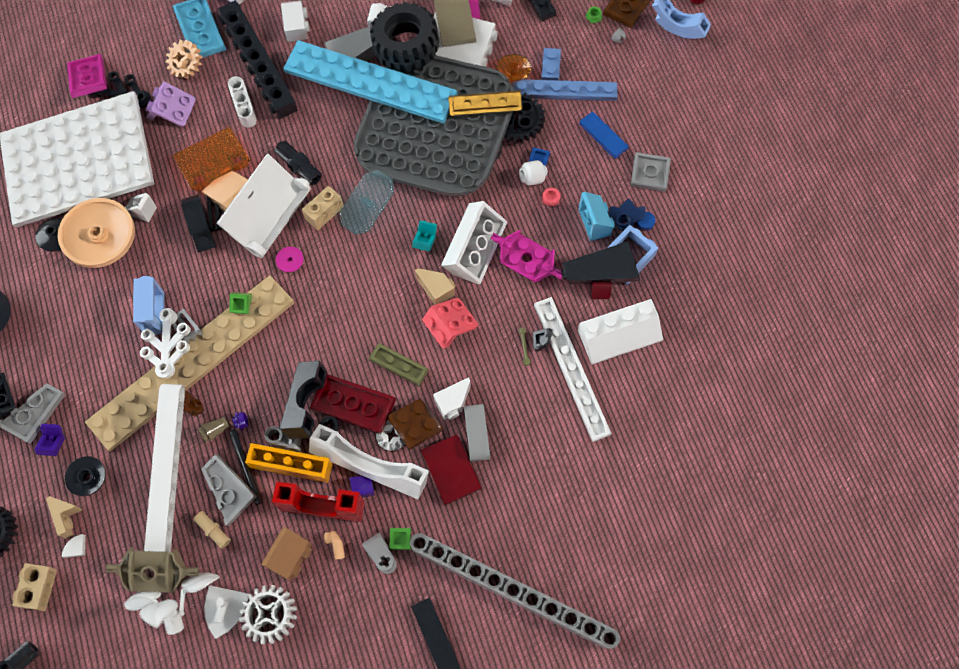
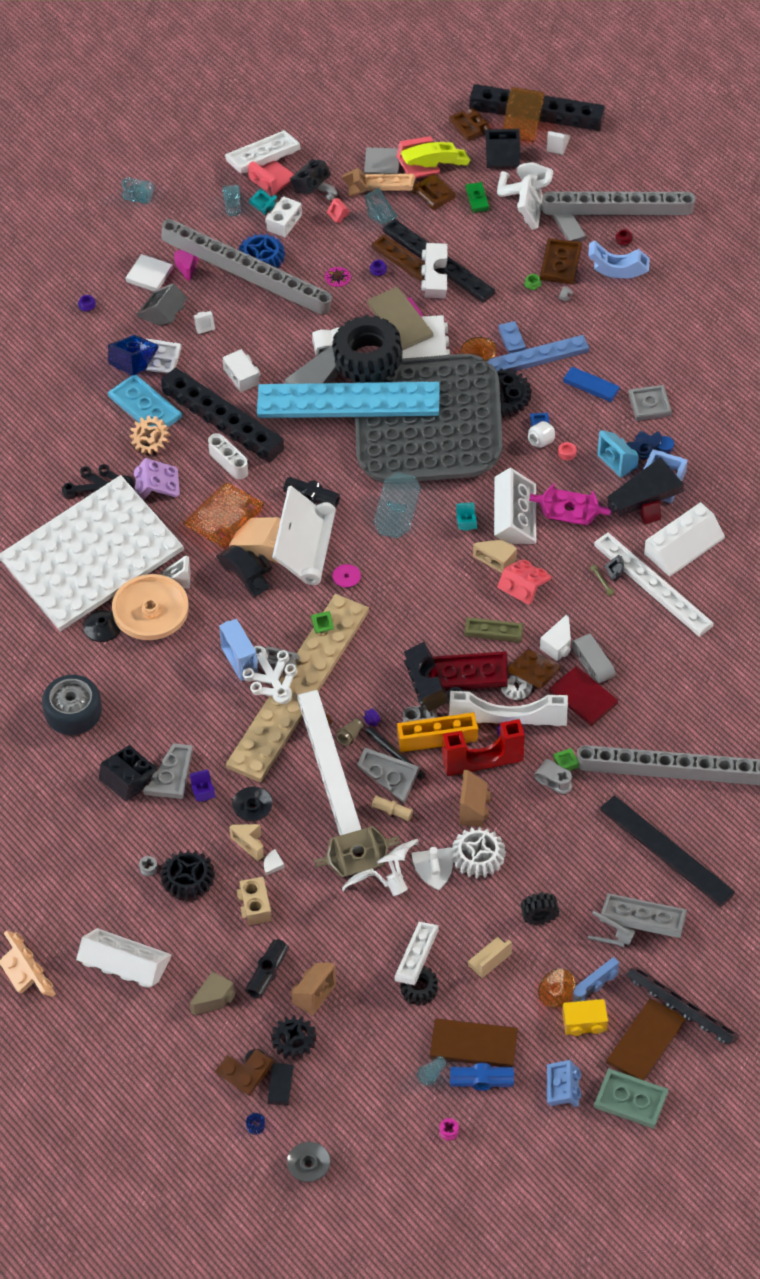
camera: 20 degrees left, 15 degrees down
(86, 75) = (59, 478): dark pink tile -> none
(323, 208) = (357, 522): tan brick -> none
(336, 542) = (509, 781): light nougat arm -> none
(485, 102) = (472, 383): plate -> none

